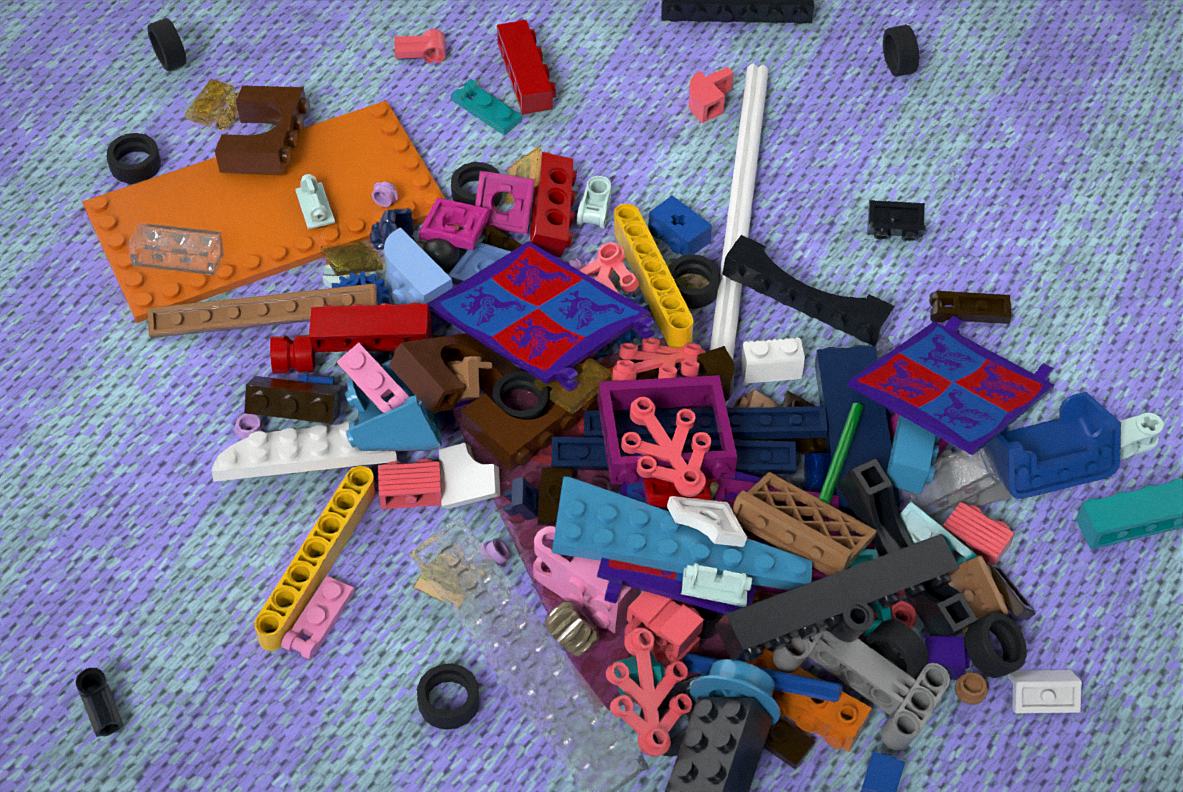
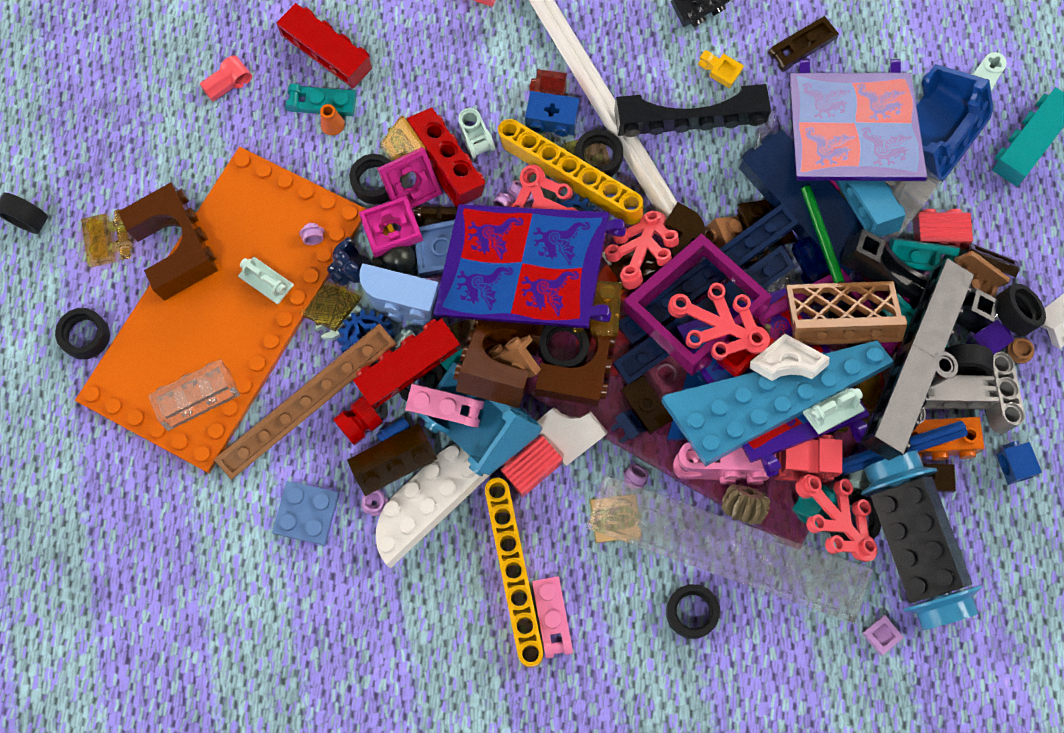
camera: 30 degrees left, 20 degrees up
(185, 400) = (305, 513): none -> medium blue plate
(479, 123) = (330, 120): none -> orange cone
(699, 201) = (549, 82): none -> clear red brick
(772, 360) = (705, 183): white brick -> none
(872, 281) = (723, 70): none -> yellow plate

